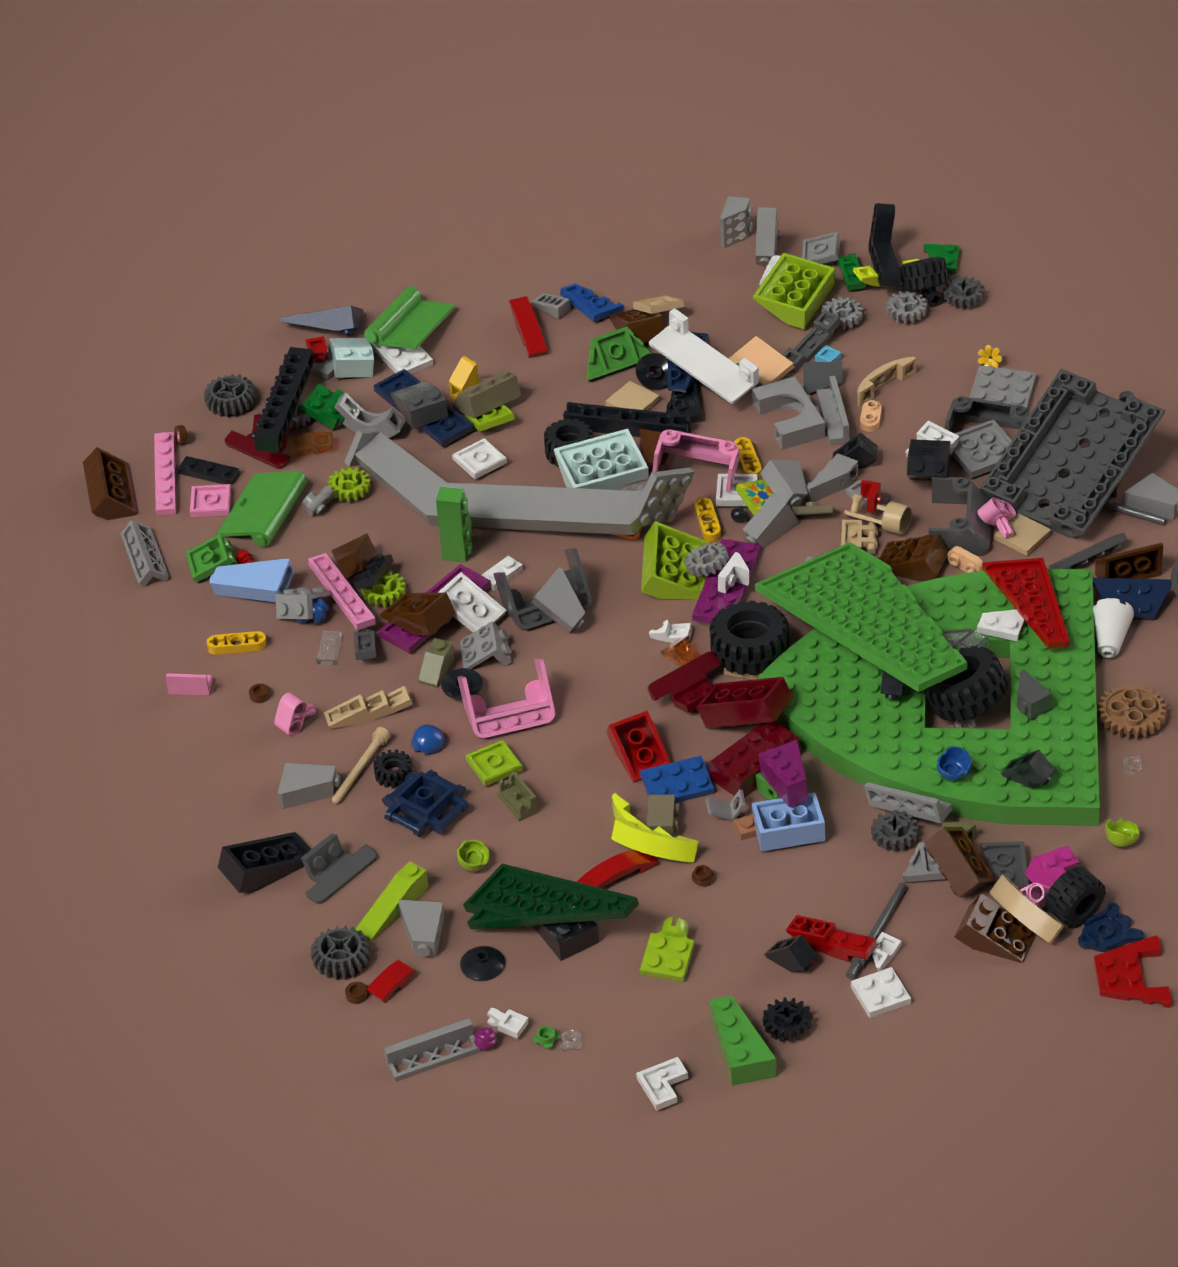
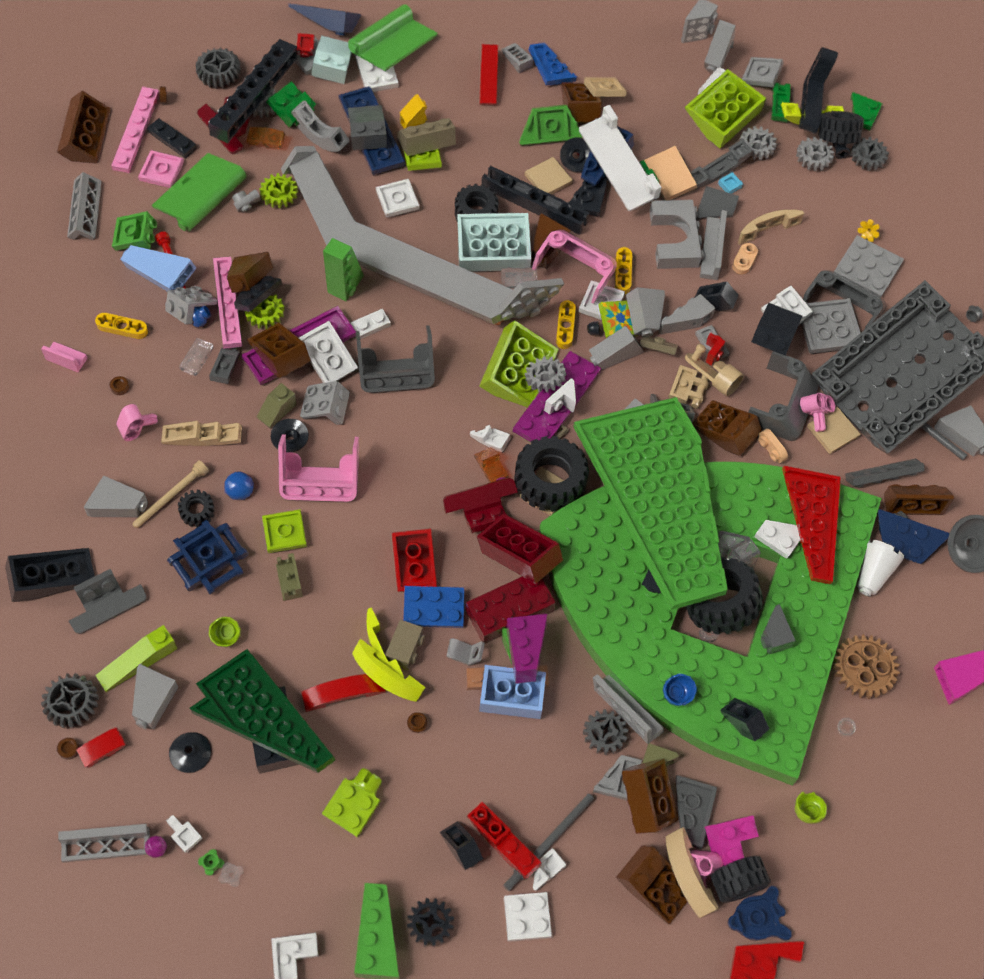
camera: 10 degrees right, 20 degrees up
(560, 602) = (402, 379): light grey slope -> none

